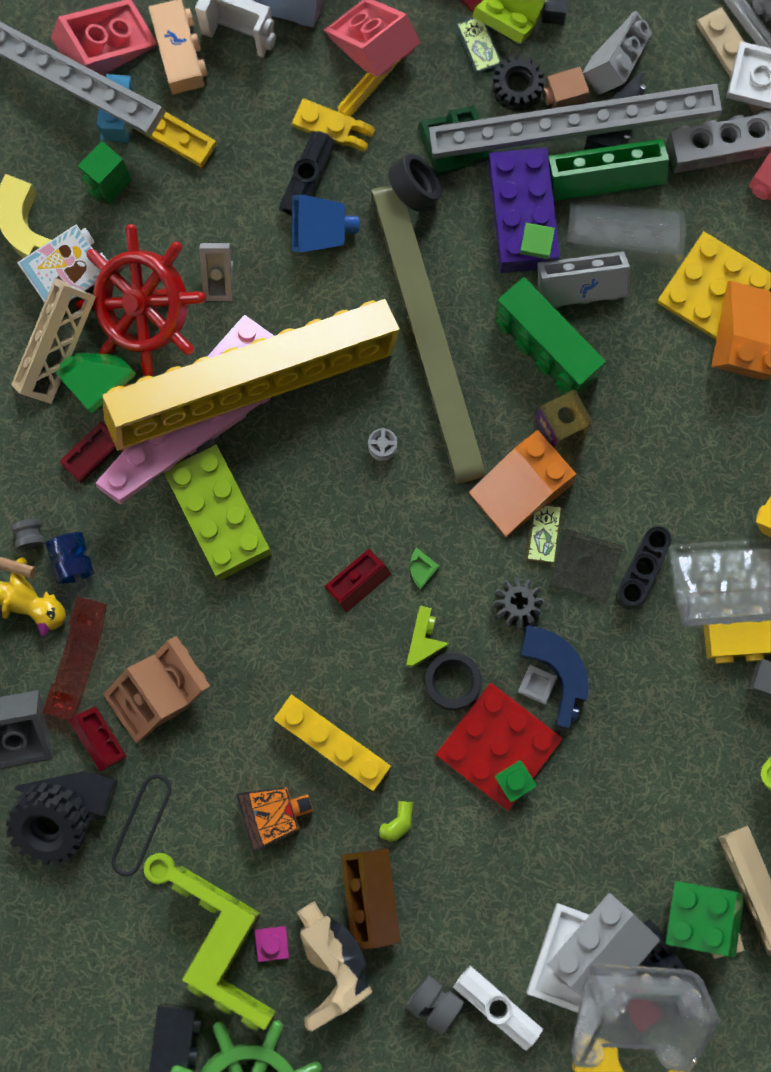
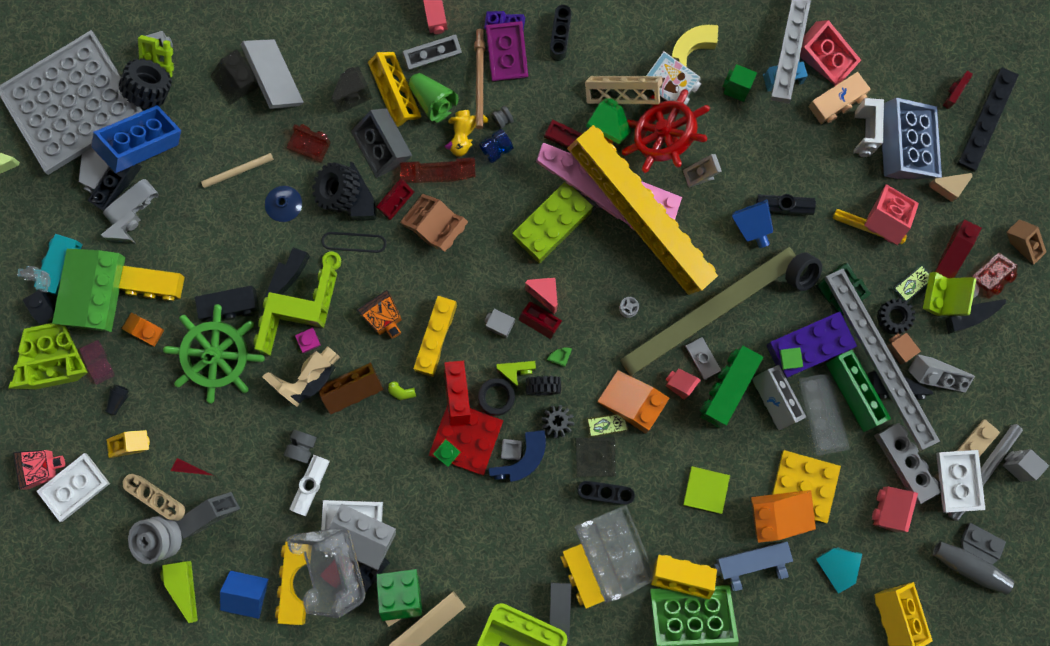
camera: 70 degrees right, 0 degrees up
(56, 918) = (289, 209): none -> dark blue dish
(157, 945) = (287, 274): none -> black slope
(183, 139) = (781, 120): yellow plate -> none
(322, 557) = (544, 291): none -> coral slope
(335, 124) = (824, 208): yellow hinge -> none
(343, 640) = (499, 323): none -> light grey brick
(430, 737) = (457, 393): none -> red brick
(460, 605) = (543, 385): none -> black tyre
(491, 366) = (703, 358): none -> light grey plate
(520, 405) = (682, 383): none -> coral slope
(553, 428) = (673, 409): clear yellow piece -> none
(681, 425) = (706, 490): none -> lime tile

